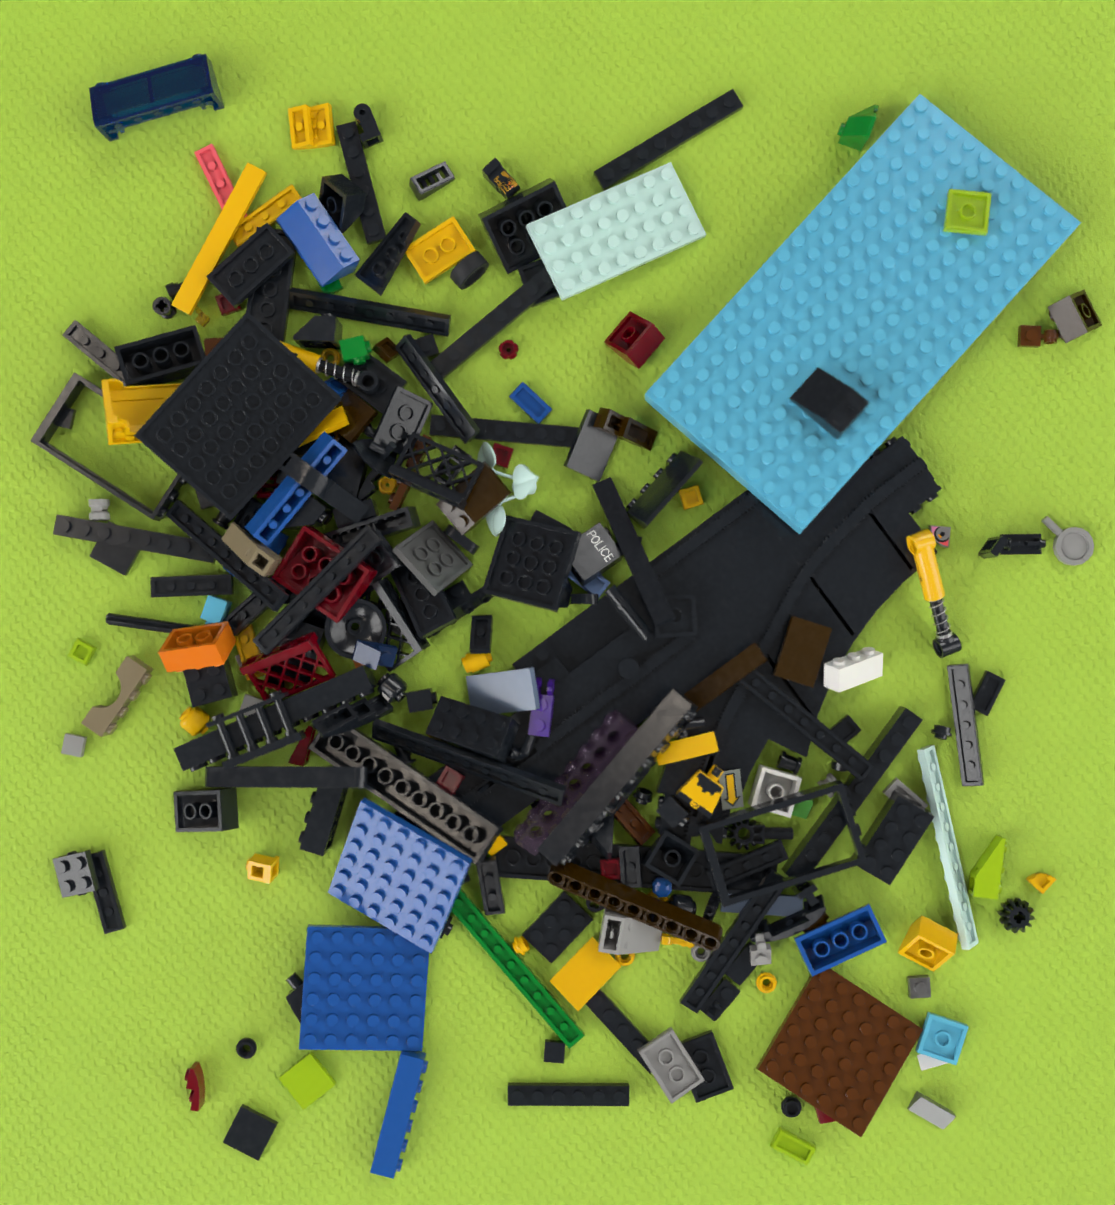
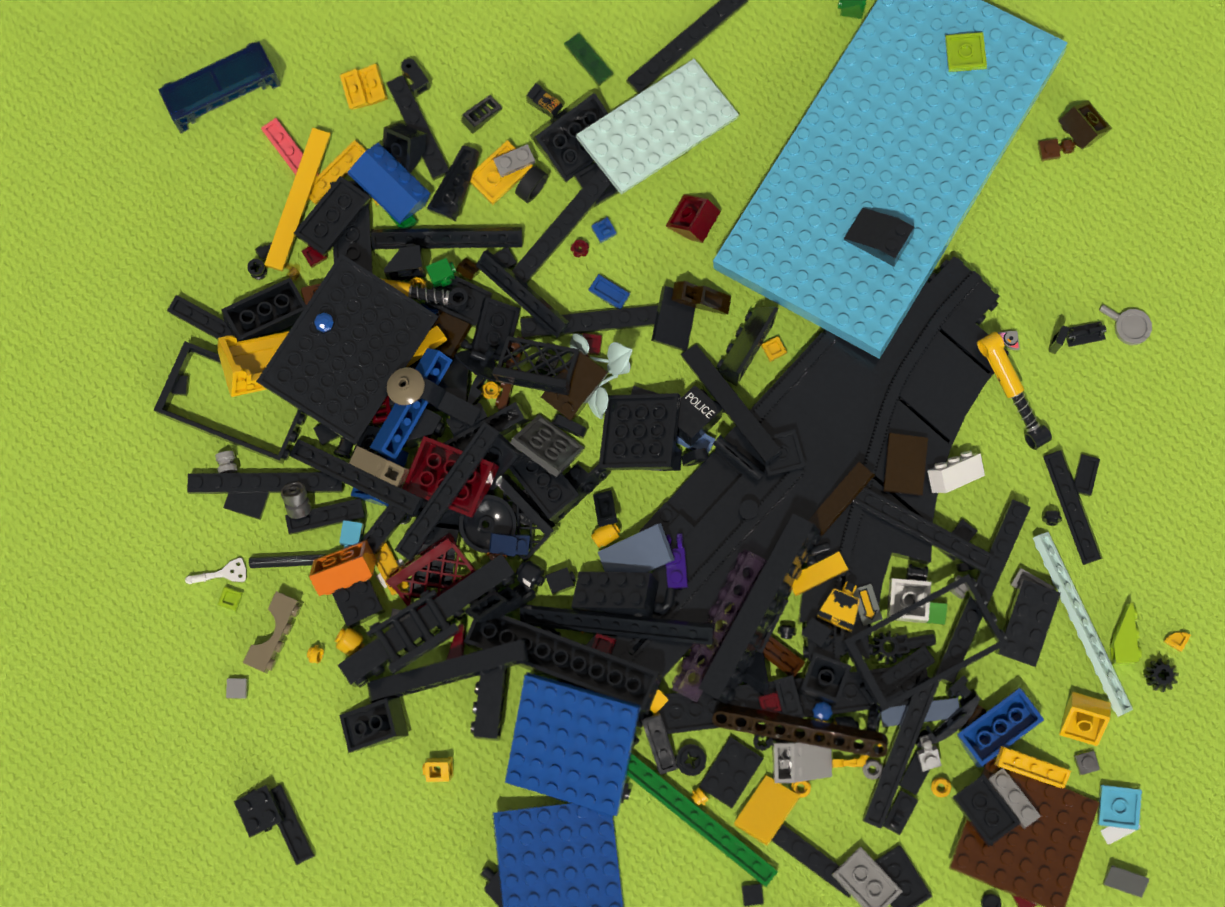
camera: 10 degrees left, 10 degrees down
(80, 624) = (224, 573): none -> white piece
(158, 726) = (315, 654): none -> yellow plate
(162, 564) = (296, 500): none -> flat silver wheel
(216, 384) = (323, 322): none -> blue tile
(296, 477) = (411, 391): none -> dark tan dish
(456, 240) = (514, 160): none -> light grey plate
(526, 911) = (697, 765): none -> black gear
(537, 334) = (603, 230): none -> blue tile
(557, 141) = (588, 59): none -> clear green tile
(806, 1021) = (986, 810): none -> black plate
(837, 1012) = (1014, 798): none -> light grey plate
(863, 984) = (1032, 767): none -> yellow tile

